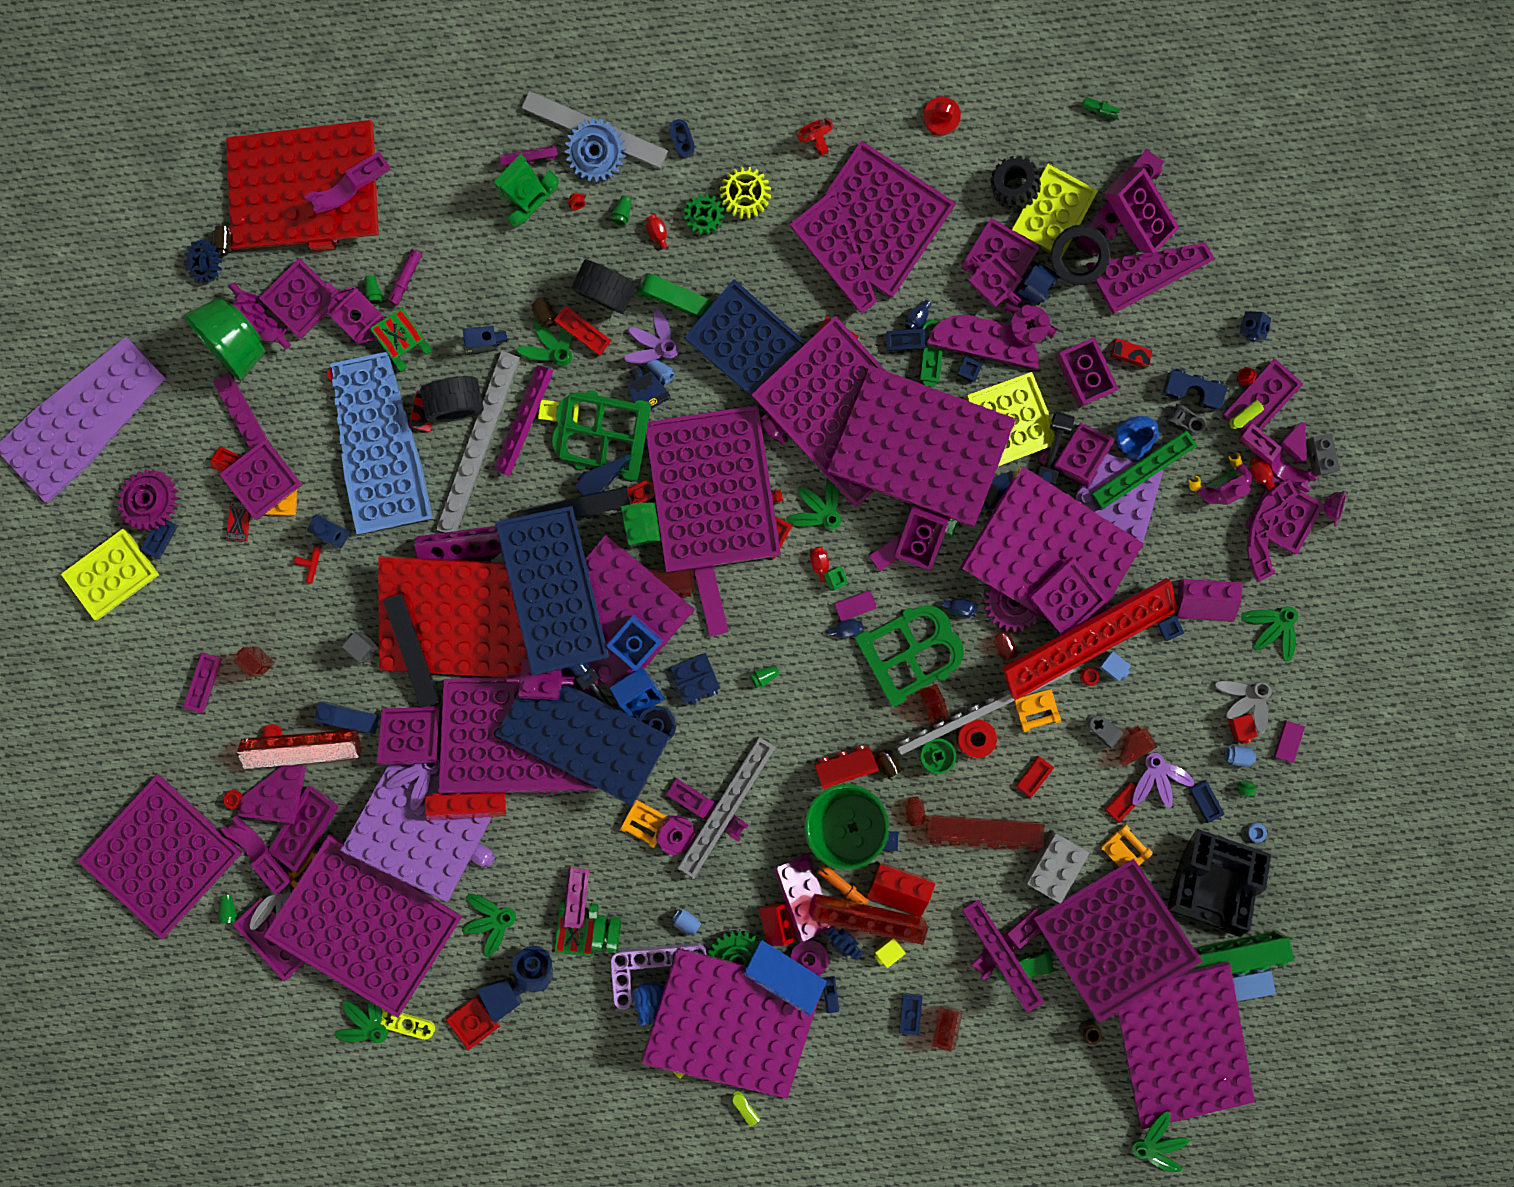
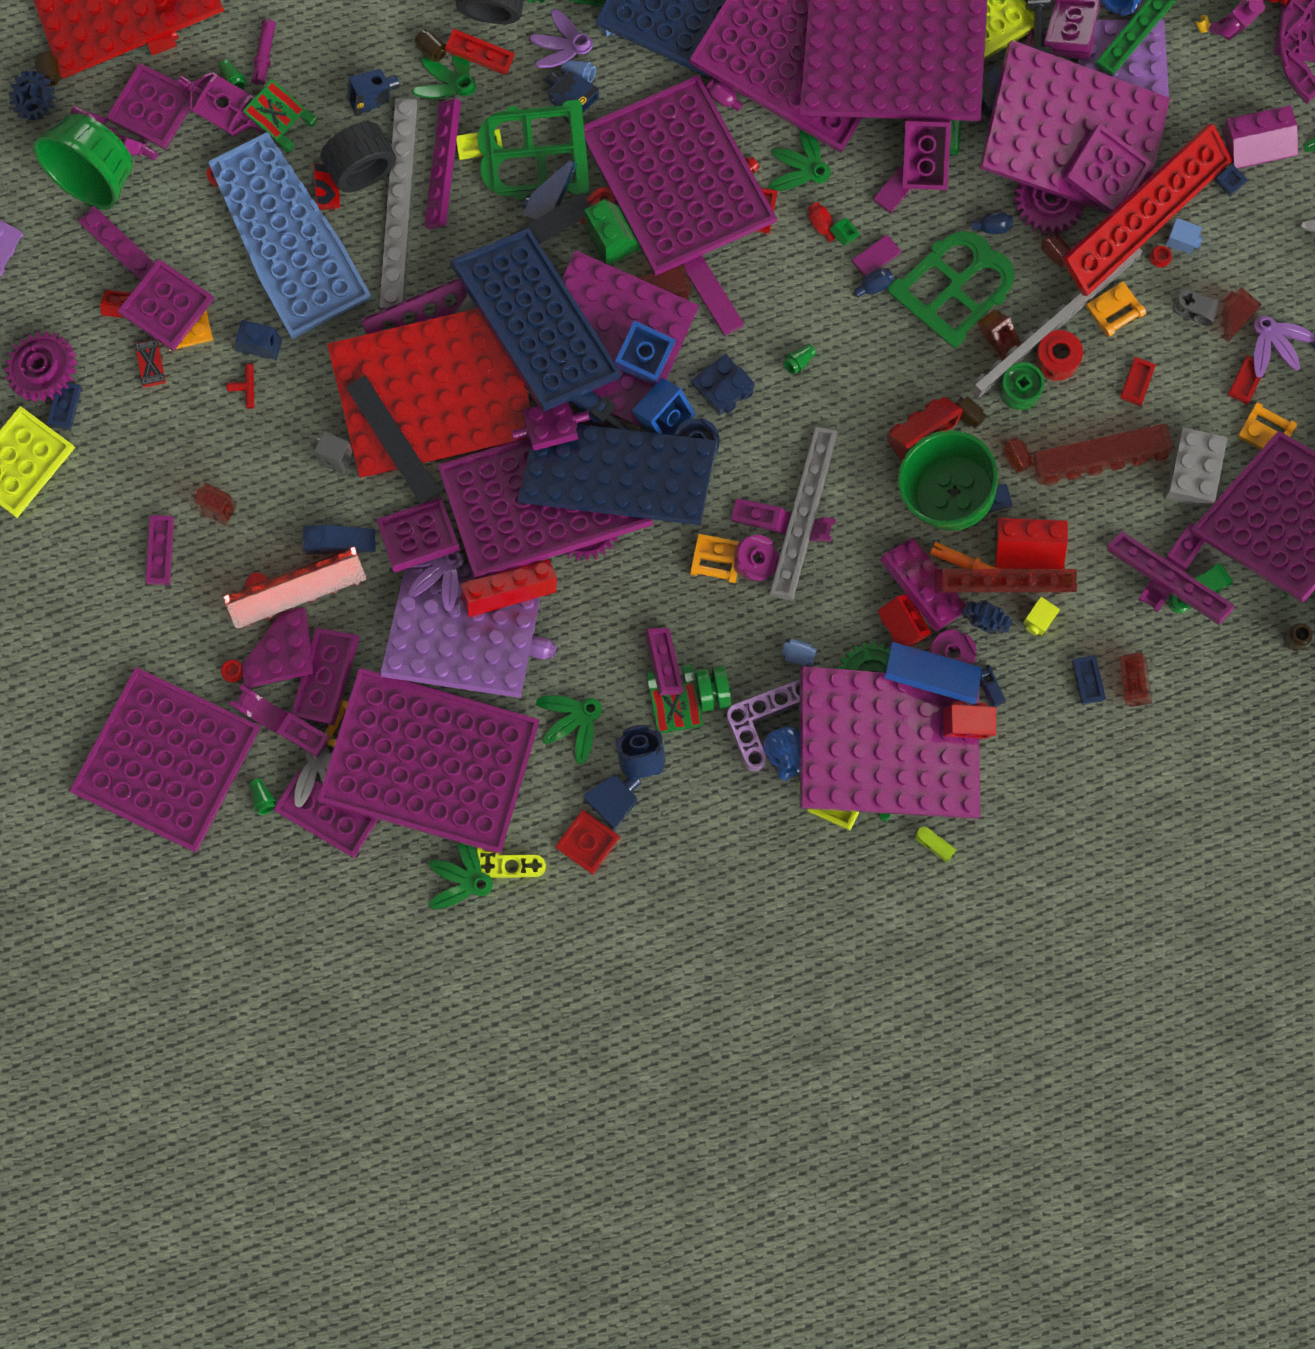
camera: 20 degrees left, 10 degrees down
(801, 1026) = (969, 721): none -> brick

